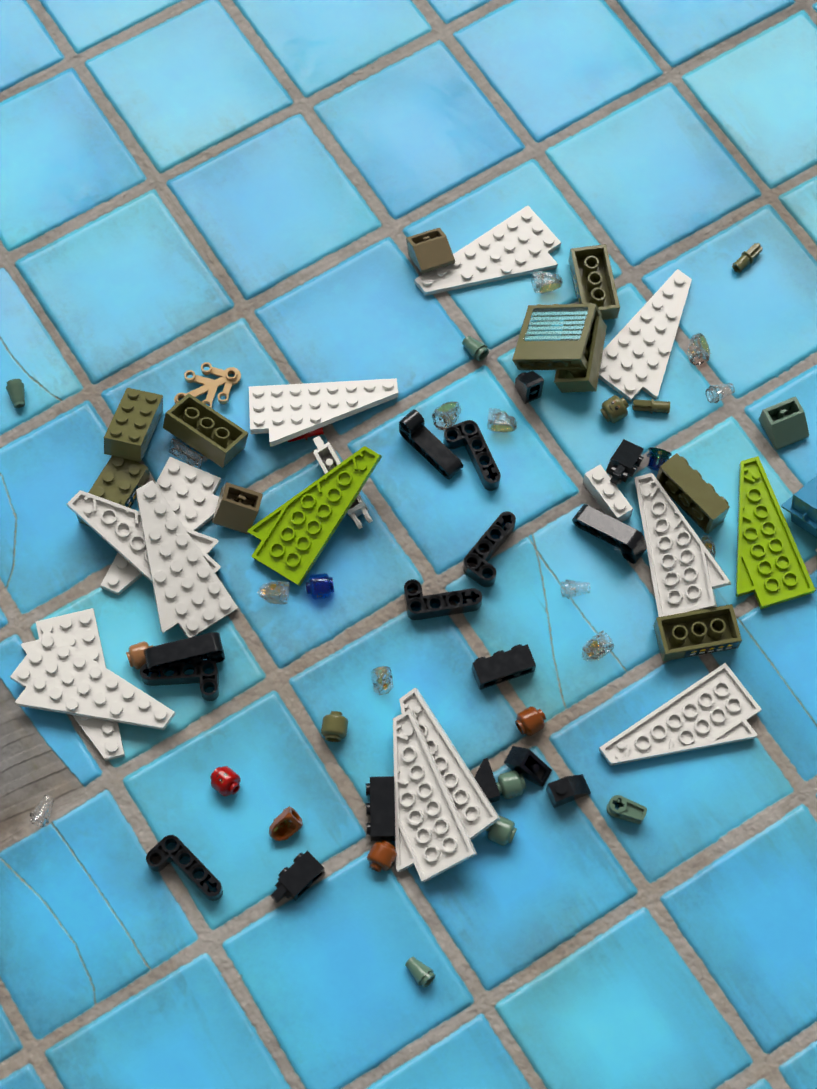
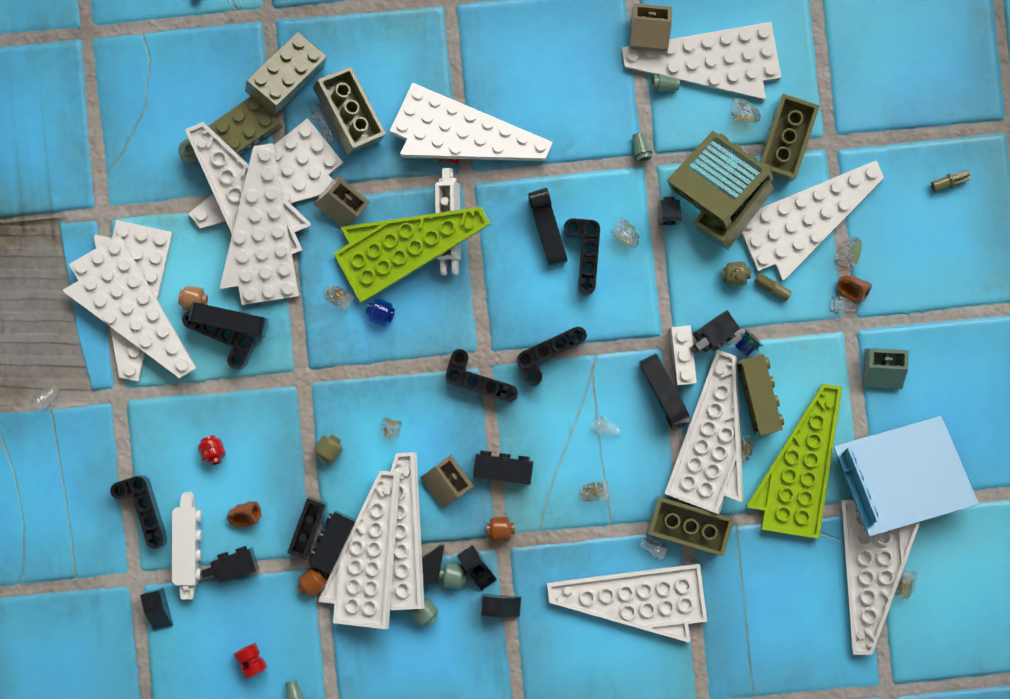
camera: 25 degrees right, 20 degrees up
(78, 530) = (187, 152): none -> sand green head
(211, 385) = (378, 64): tan plant -> none
(244, 882) = (186, 545): none -> white hinge
(245, 955) = (156, 608): none -> black slope
(352, 805) = (307, 528): none -> black brick
(355, 952) = (250, 660): none -> red wheel
(446, 415) = (579, 202): clear rock -> none
(459, 700) = (447, 481): none -> dark tan slope
(465, 290) = (664, 83): none -> sand green cone
(627, 810) = (540, 650): sand green piece -> none
(677, 670) = (654, 548): none -> clear cone
(719, 374) = (854, 288): none -> dark orange rock

